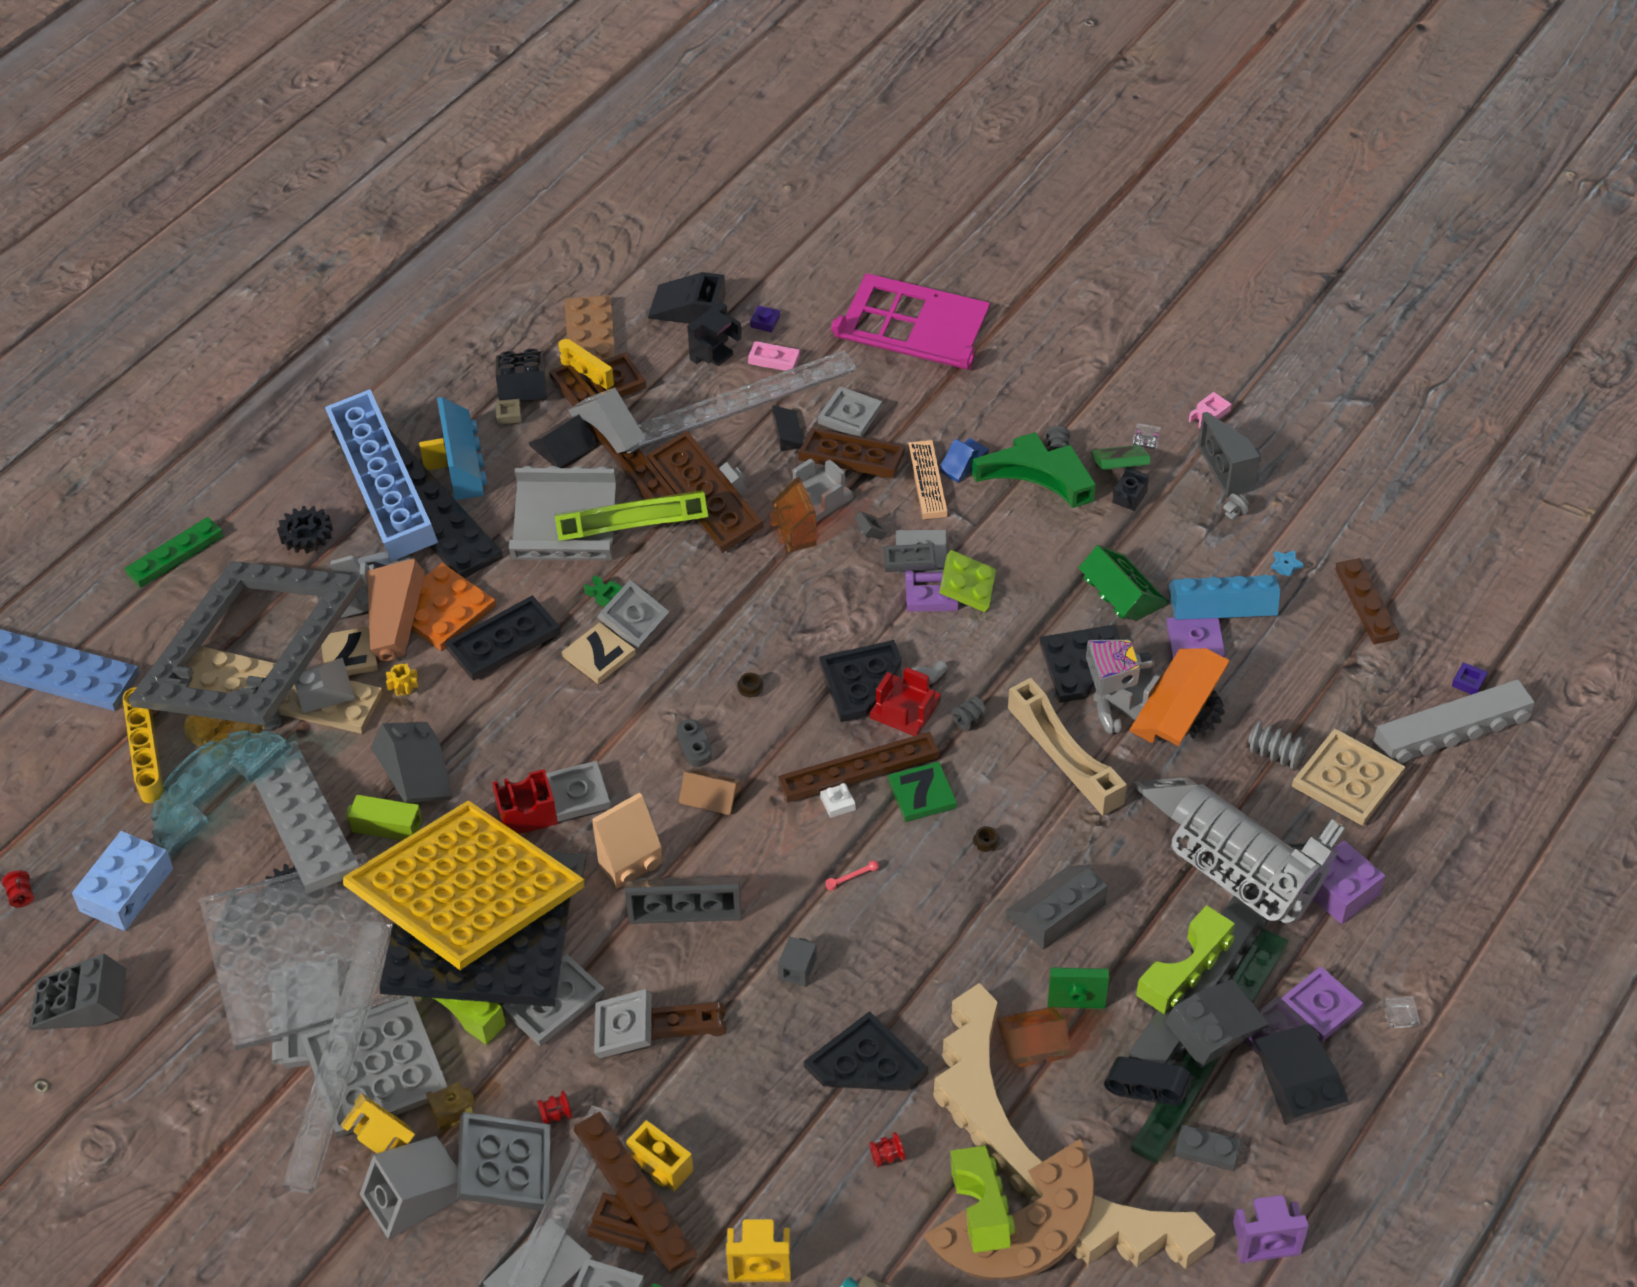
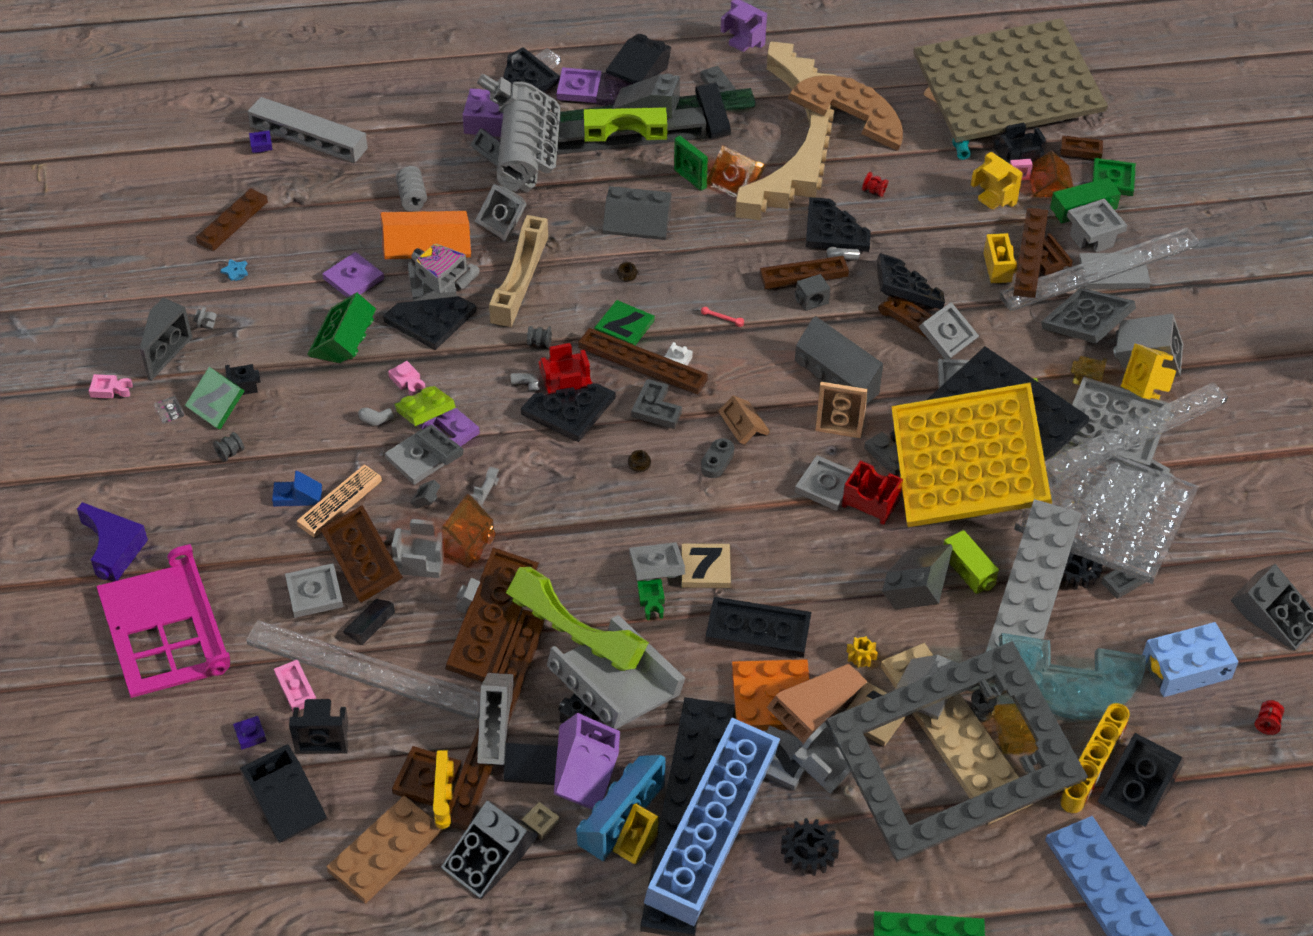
camera: 135 degrees left, 0 degrees up
(91, 759) = (1141, 780): none -> black slope
(515, 446) = (585, 760): none -> medium lavender slope
(552, 1103) = (1030, 326): red bush -> none
(723, 1048) = (900, 282): none -> black plate
(797, 732) = (651, 407): none -> dark grey plate
(821, 549) = (481, 493): none -> light grey bar
(821, 1033) = (849, 254): none -> light grey arm
(832, 980) = (791, 273): none -> reddish brown plate
(988, 1219) = (876, 100): lime arch -> none
(995, 548) = (373, 417): none -> light grey arm
(1023, 599) = (406, 377): none -> bright pink plate
(1030, 335) = (118, 541): none -> dark purple arch
(1030, 461) = (260, 438): green arch -> none
(1224, 597) = (302, 274): dark azure slope -> none
(1348, 776) = (399, 148): tan plate -> none
(1381, 964) = (527, 68): none -> black plate

